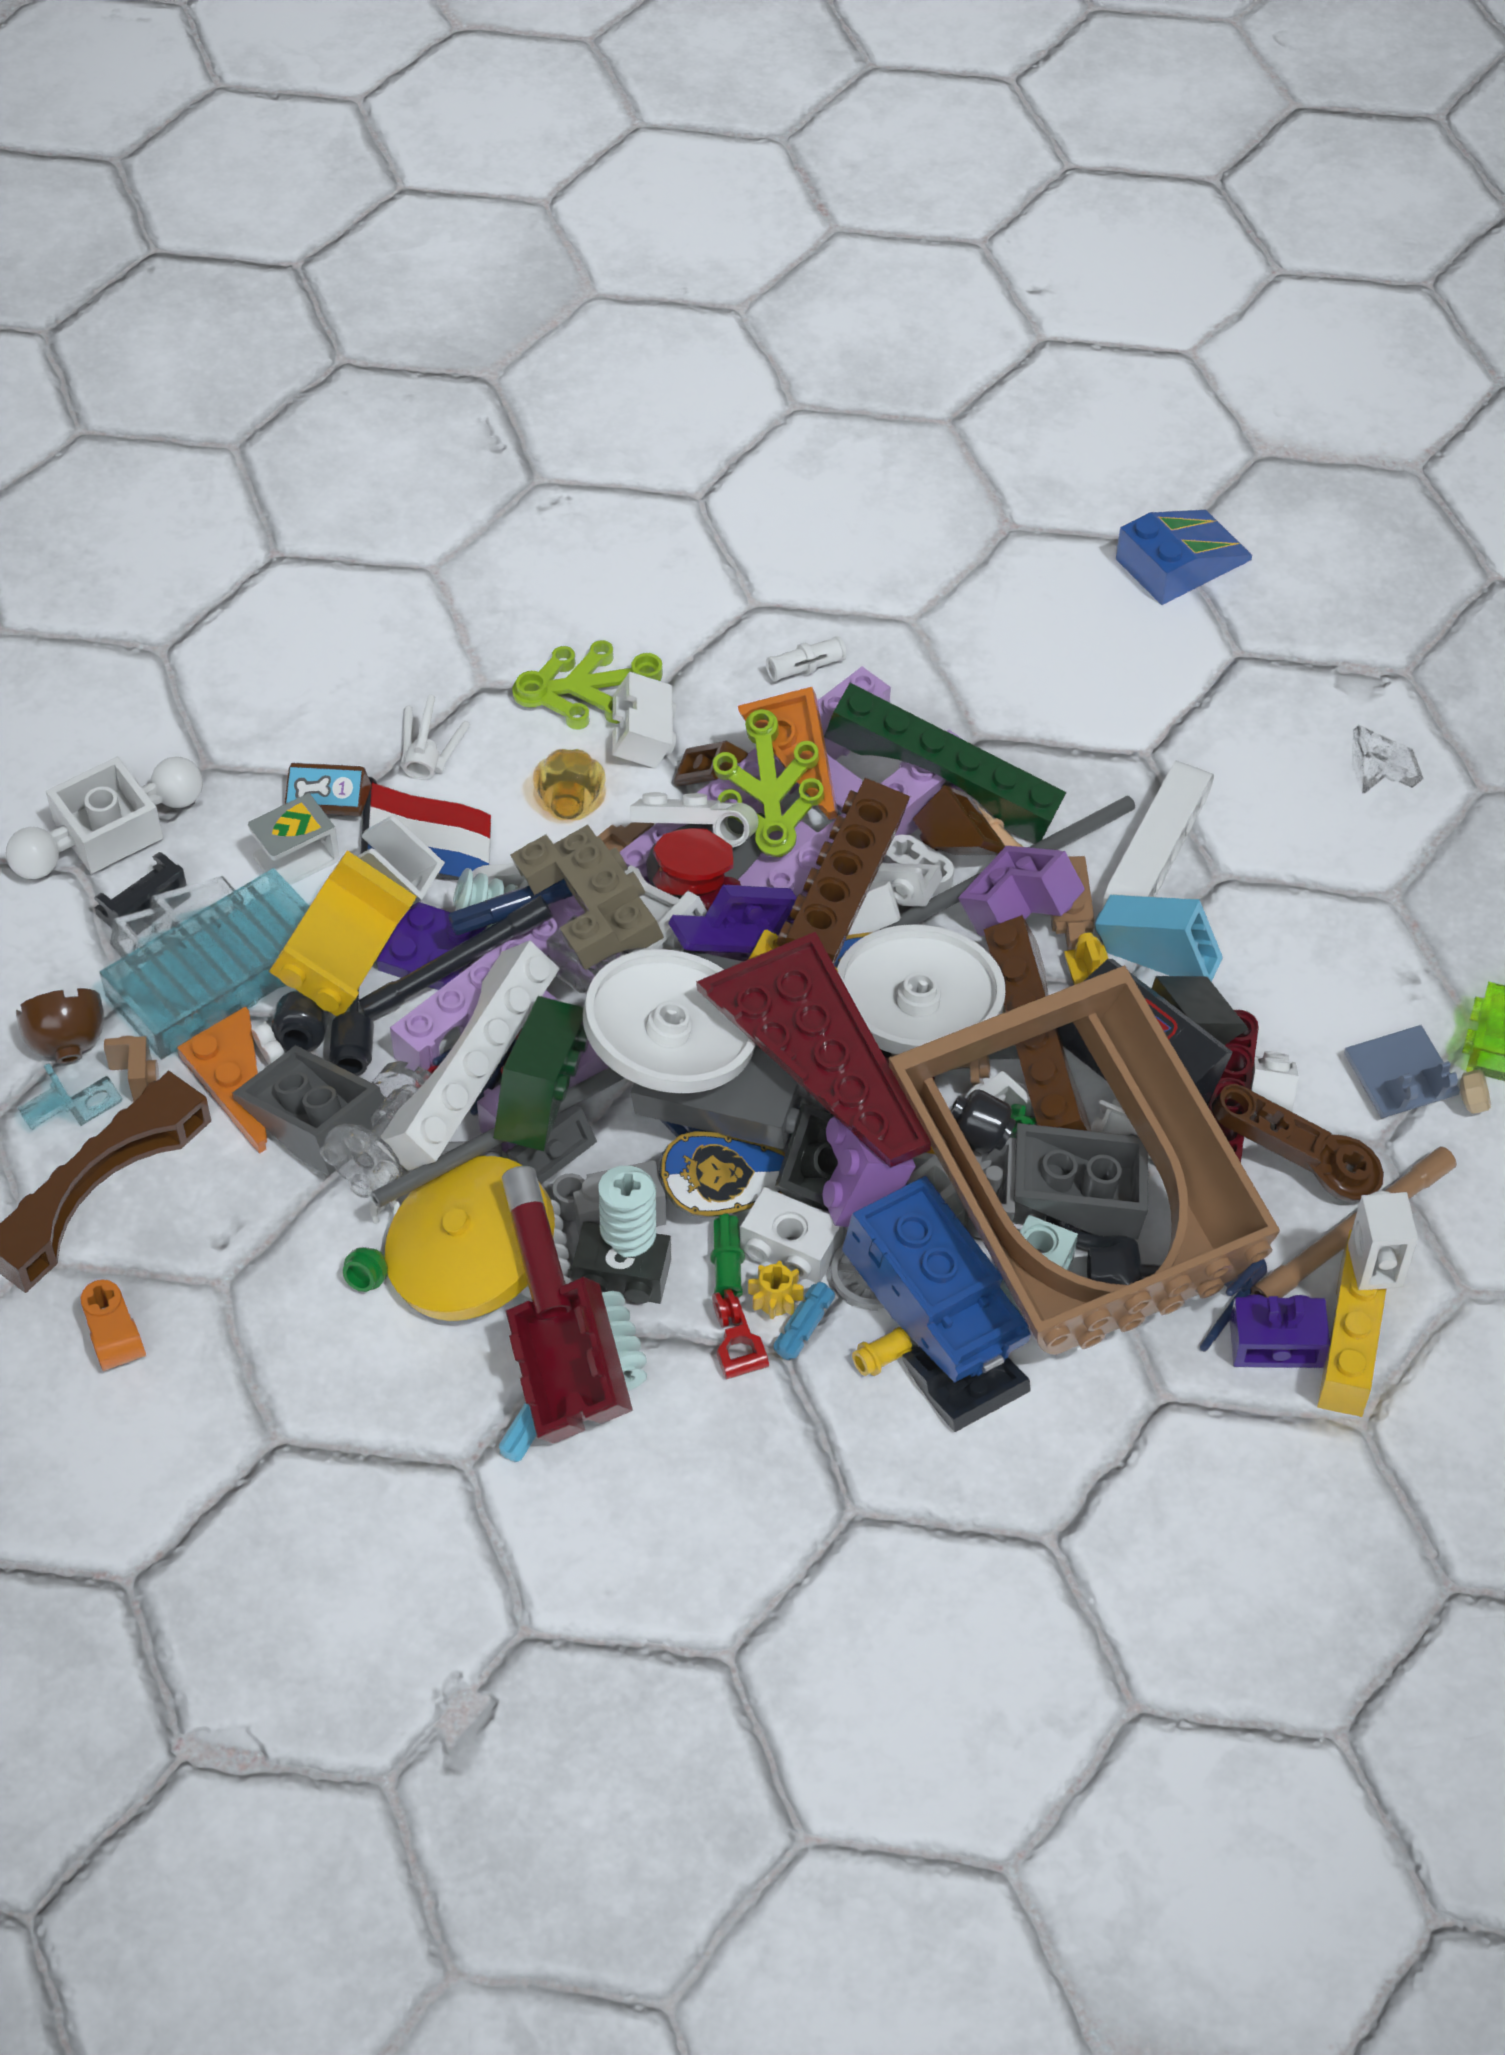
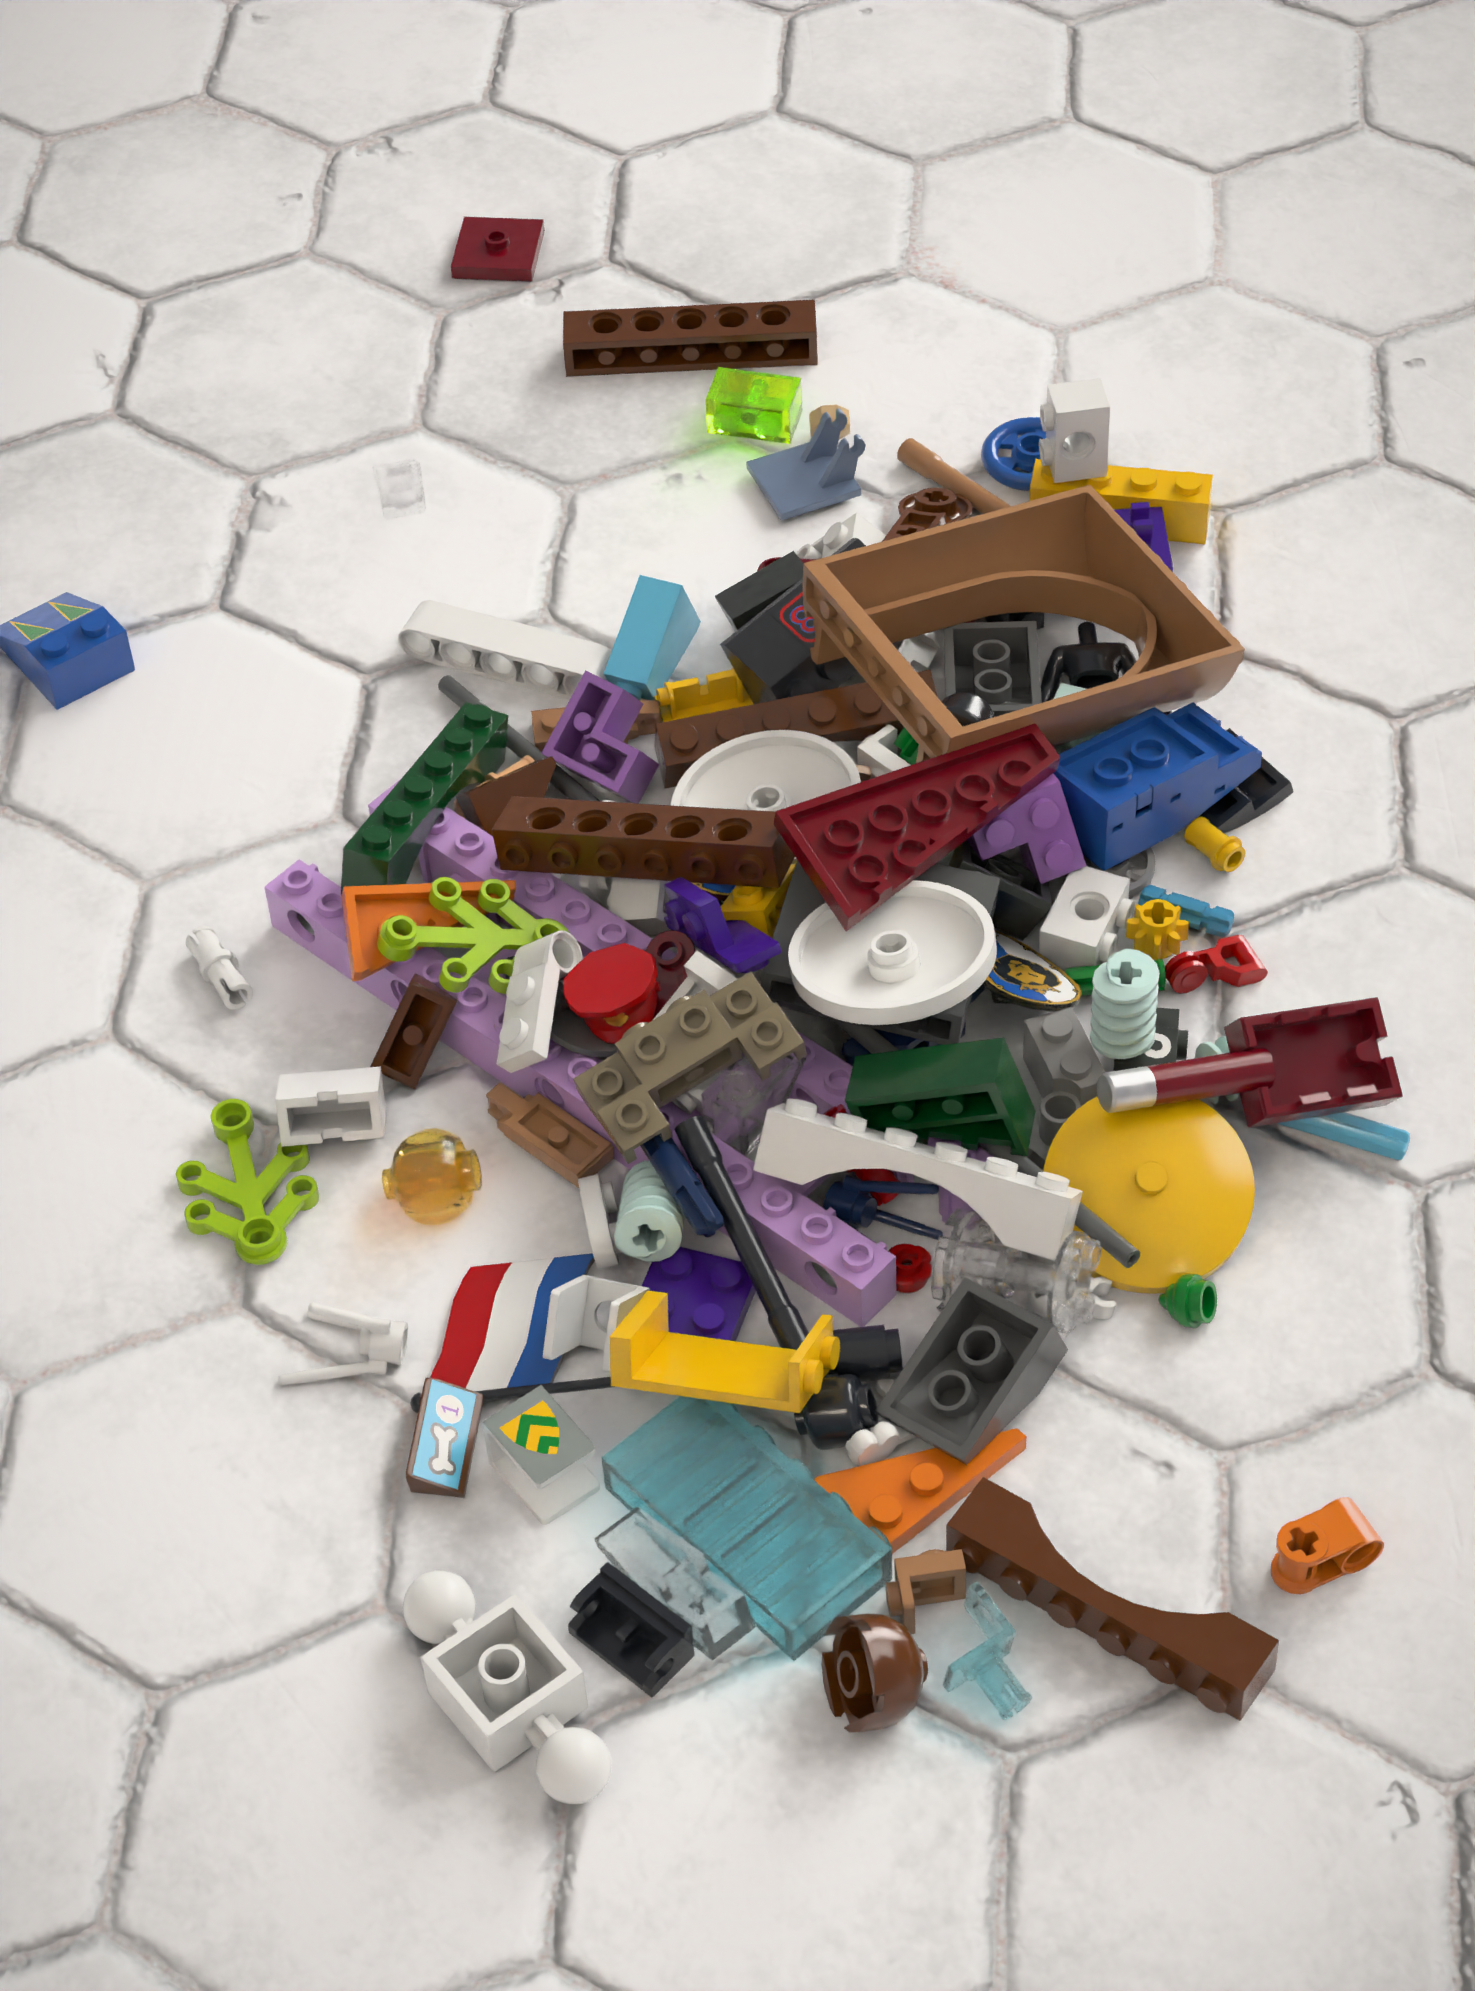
camera: 90 degrees left, 5 degrees down
(1464, 1240) = (1023, 453): none -> blue plate

